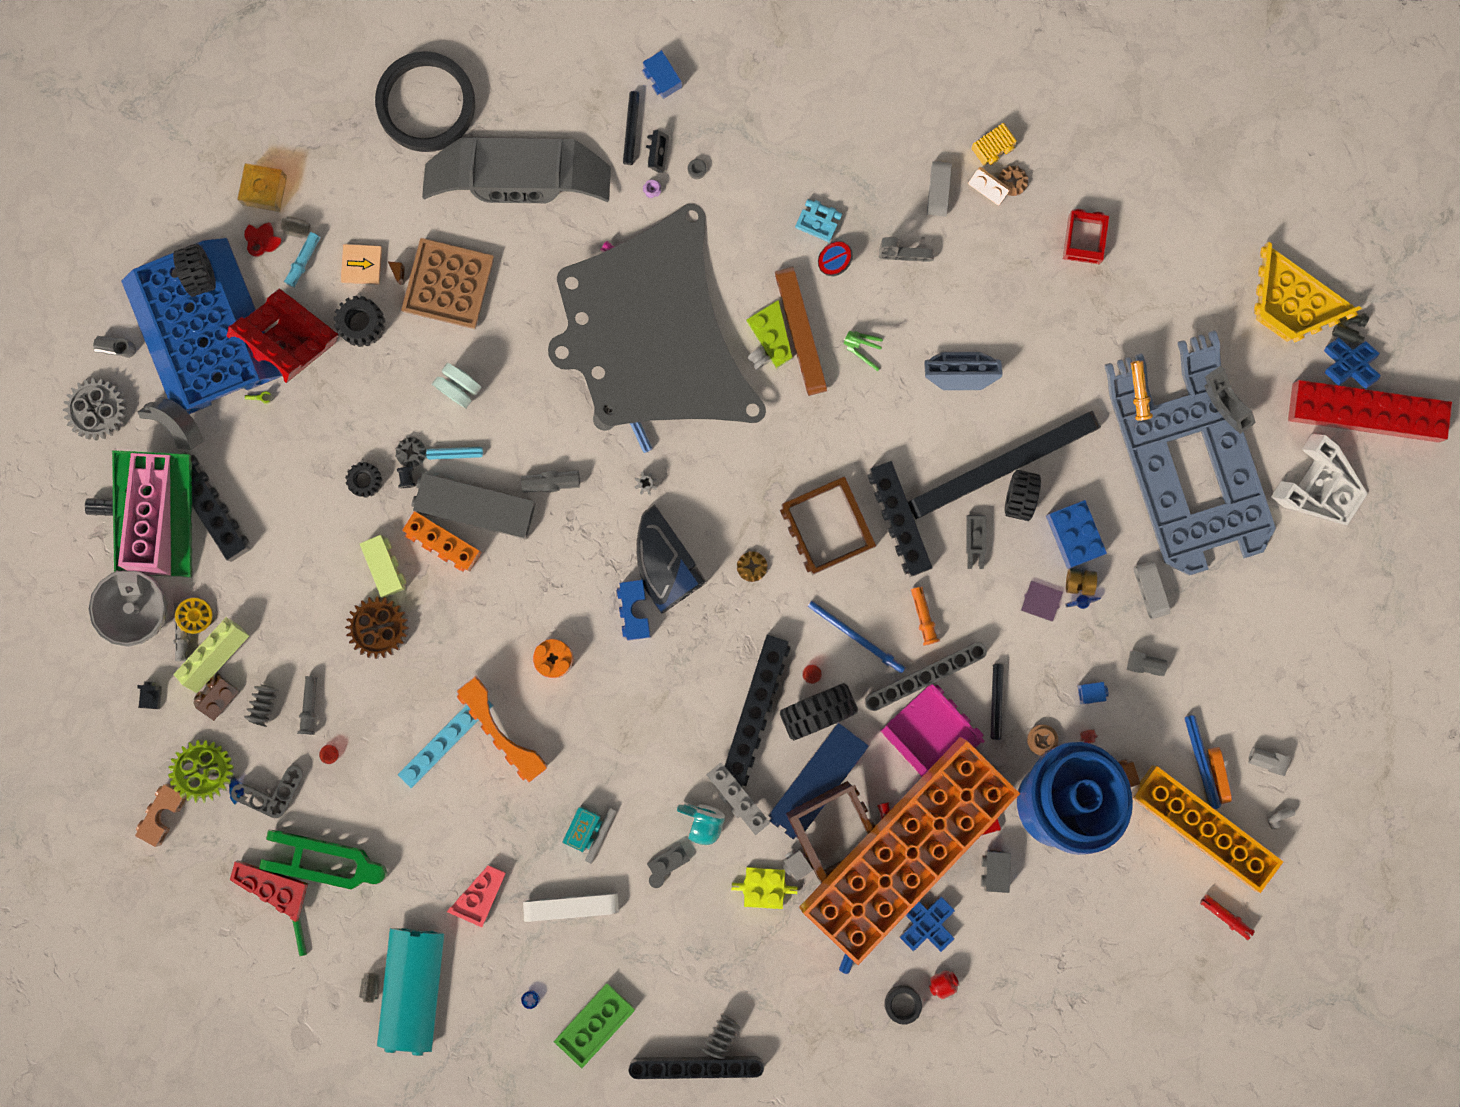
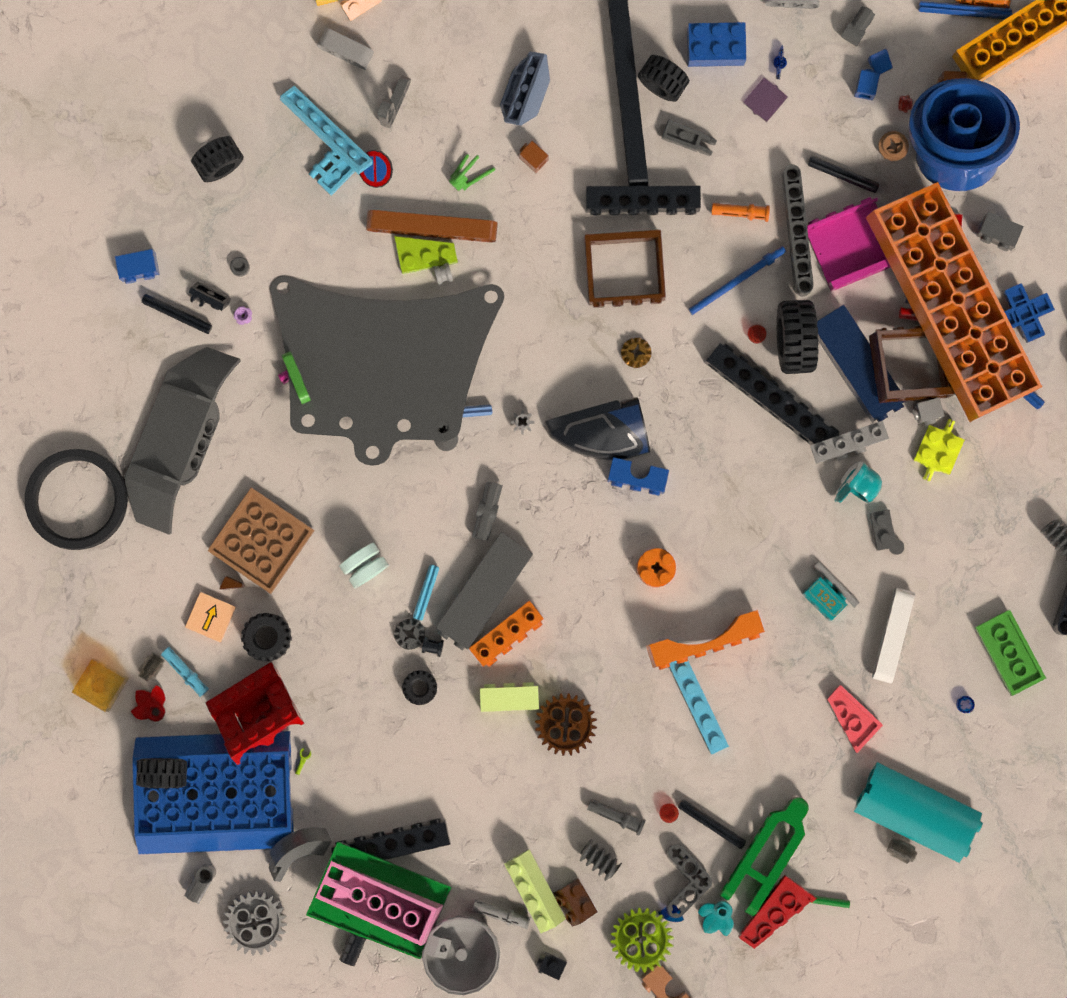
camera: 75 degrees left, 0 degrees up
(193, 615) = (490, 896): yellow wheel -> none
(245, 833) = (715, 920): none -> teal plate
(332, 799) = (712, 824): none -> black axle
(607, 257) = (296, 377): none -> bright green beam
(787, 108) = (217, 159): none -> black tyre
(854, 199) = (326, 130): none -> medium azure plate
(902, 401) = (533, 156): none -> dark orange brick
(1081, 582) = (762, 56): pearl gold wheel -> none
(1119, 698) = (880, 61): none -> blue slope

